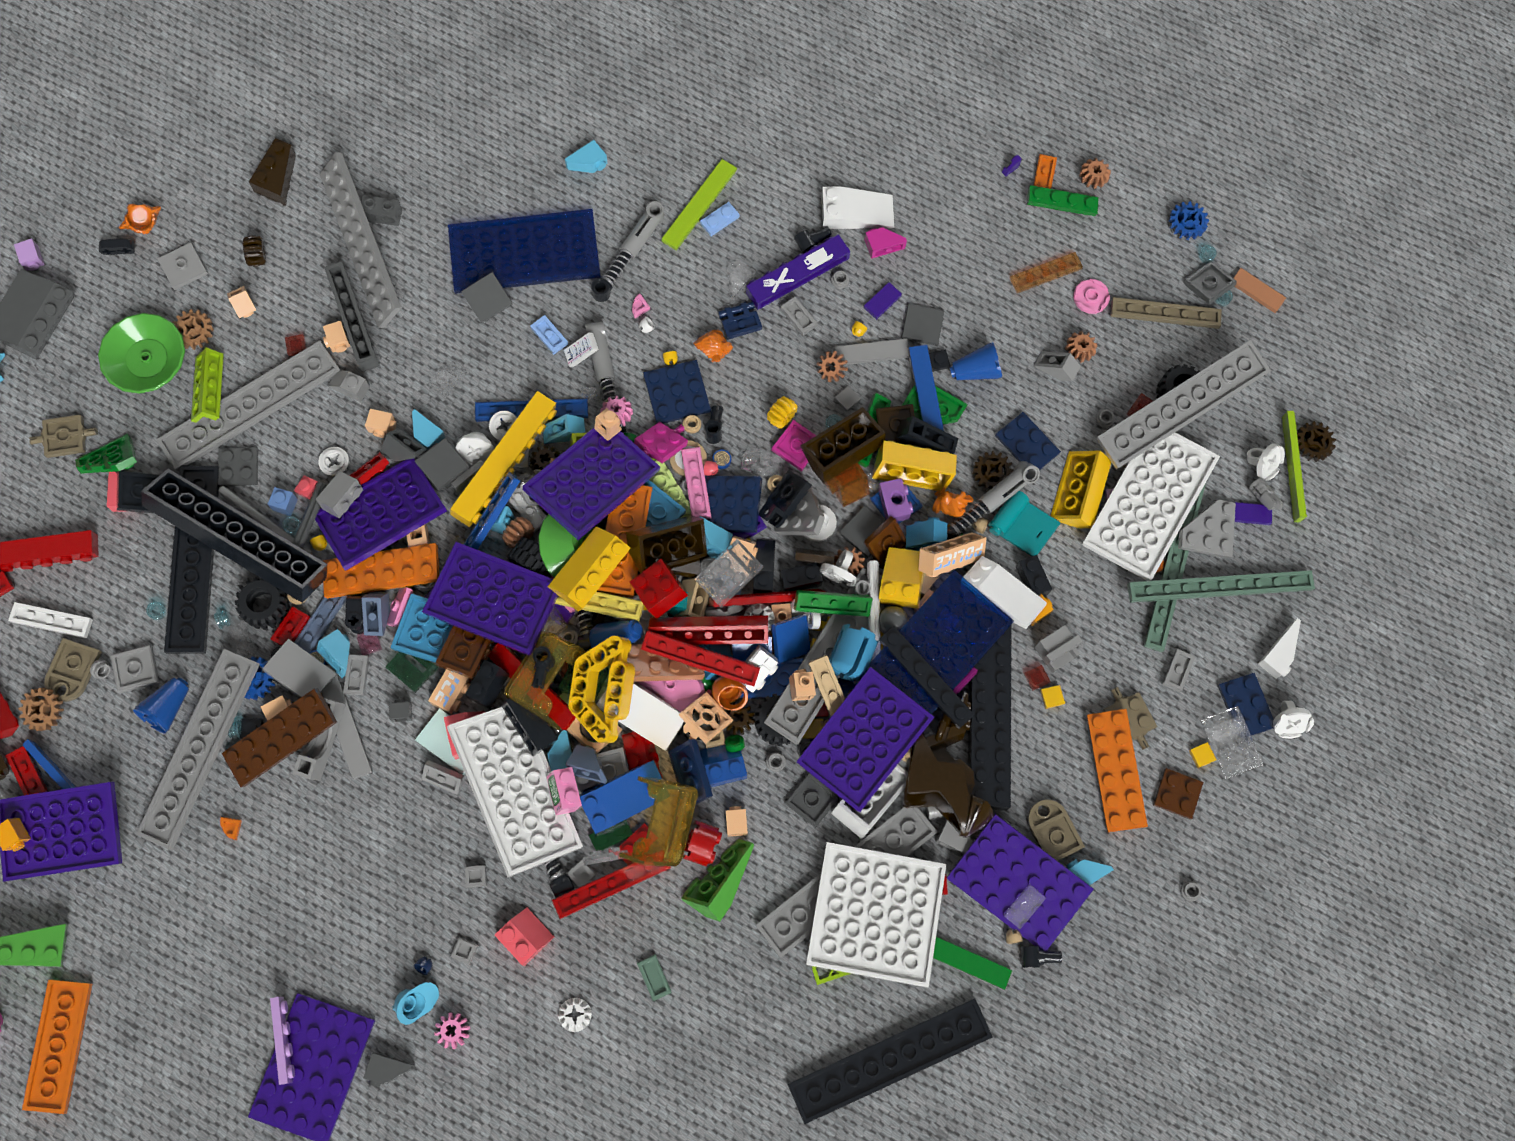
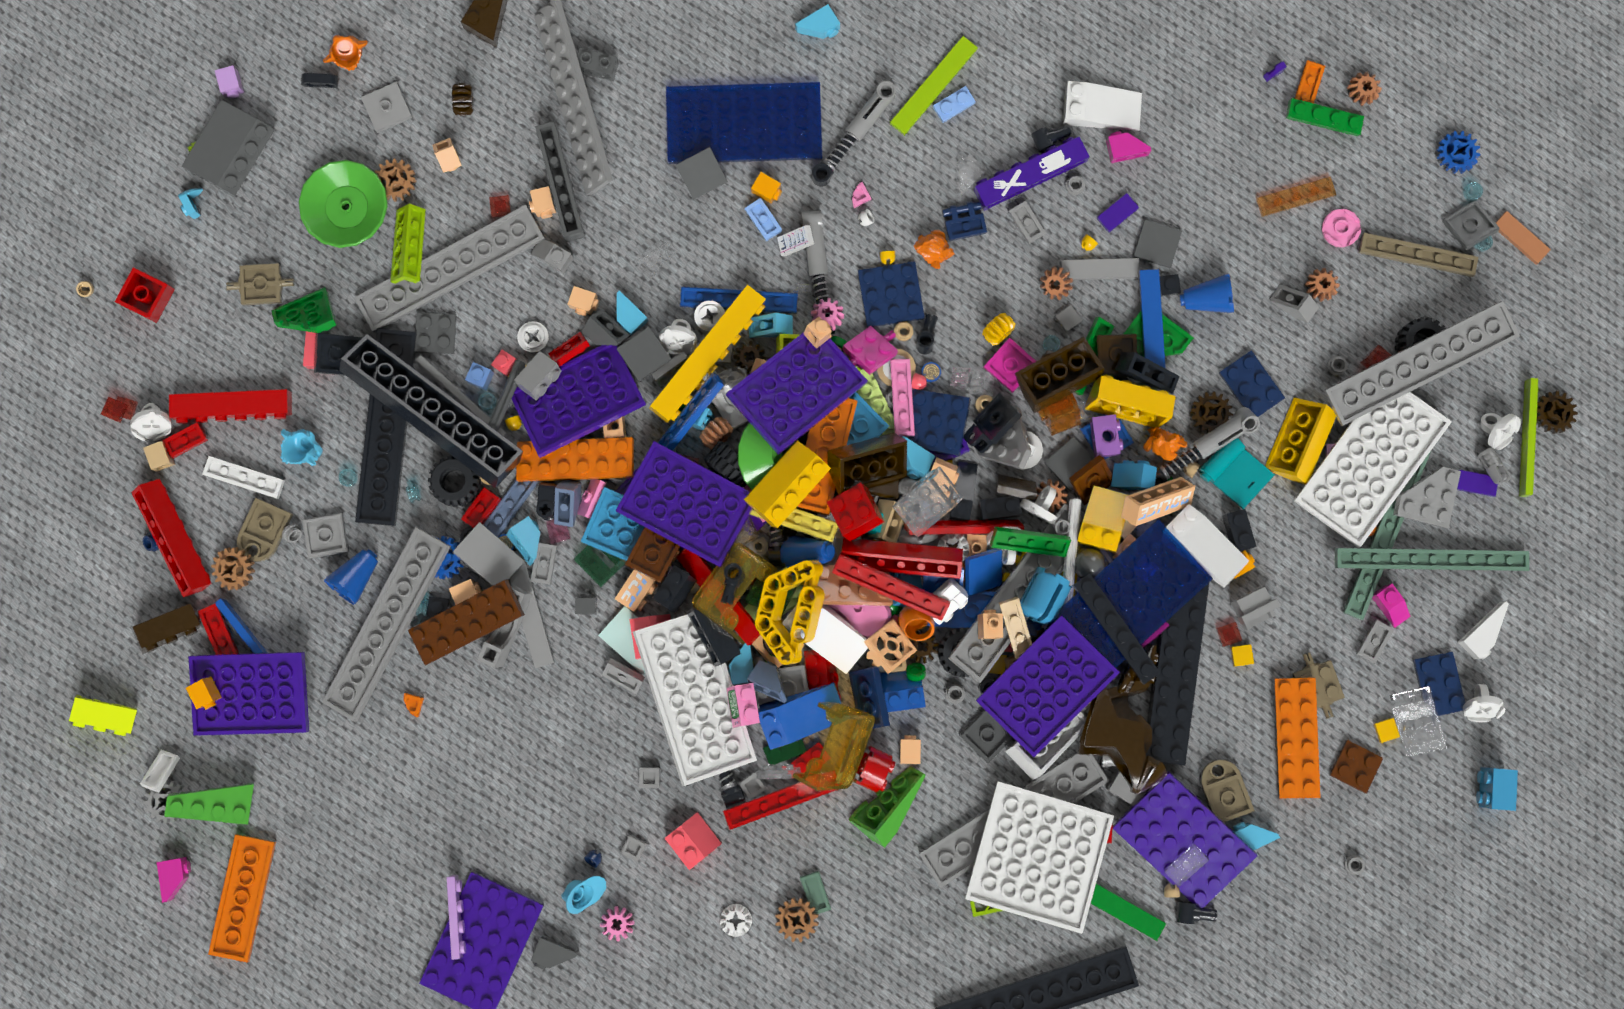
camera: 10 degrees right, 10 degrees up
(106, 584) = (300, 447): none -> medium azure hair
(550, 306) = (766, 188): none -> light orange brick
(642, 997) = (789, 914): none -> medium nougat gear
(1189, 633) = (1391, 604): none -> dark pink slope
(1318, 798) = (1497, 788): none -> dark azure brick

